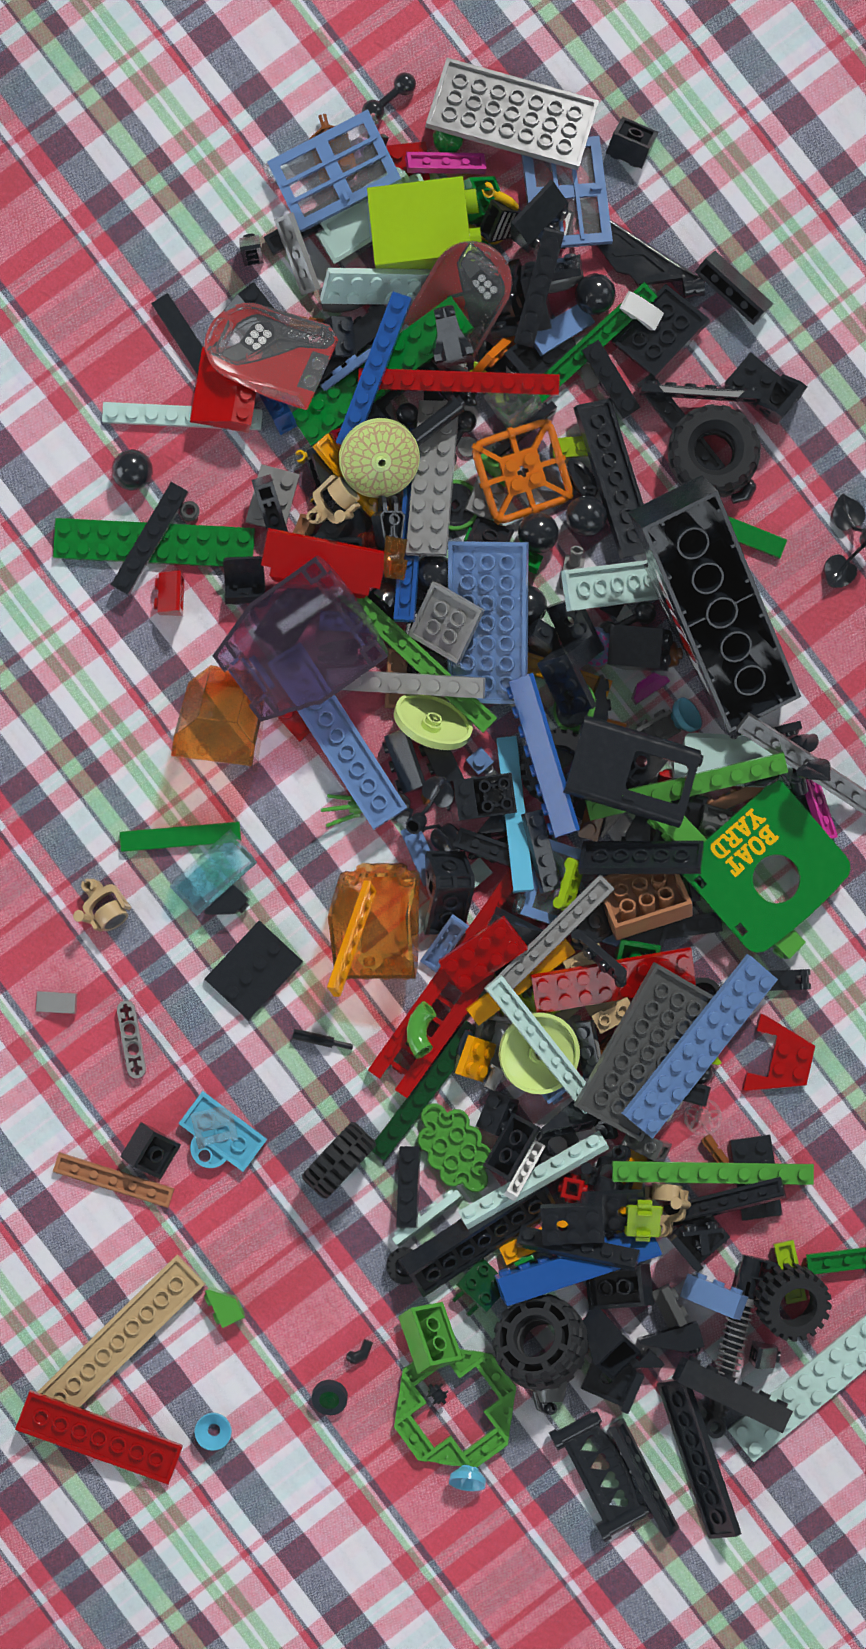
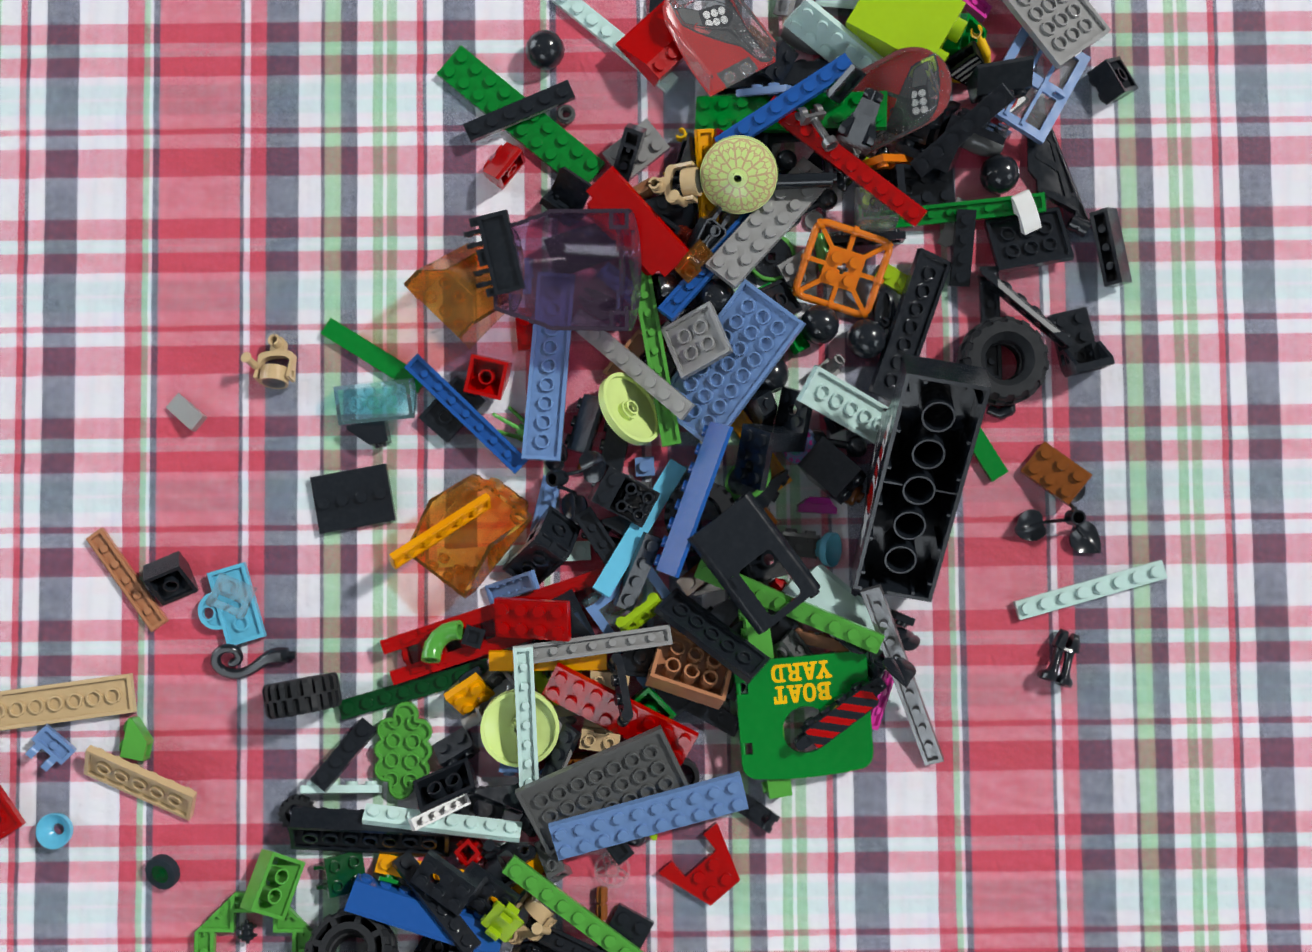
camera: 35 degrees right, 0 degrees up
(129, 1039) = (217, 480): light grey beam -> none
(157, 1360) = (53, 744): none -> medium blue plate
(232, 672) = (498, 253): none -> black hinge
(255, 1337) = (140, 782): none -> tan plate
(280, 414) = (689, 90): blue bracket -> none
(281, 832) = (441, 419): none -> black plate
(285, 1151) = (274, 655): none -> black plant
(291, 782) = (487, 376): none -> red slope
(297, 827) = (465, 413): none -> blue plate
(319, 1039) = (362, 588): black axle -> none
(360, 1355) = (211, 856): black arm -> none
(407, 360) = (815, 118): none -> flat silver bar
(413, 317) = (846, 83): none -> black plate
(444, 1006) = (473, 636): none -> black plate
(563, 328) = (954, 182): medium blue piece -> none
(795, 844) = (840, 714): none -> black hinge
(828, 512) = (1056, 473): none -> dark orange plate

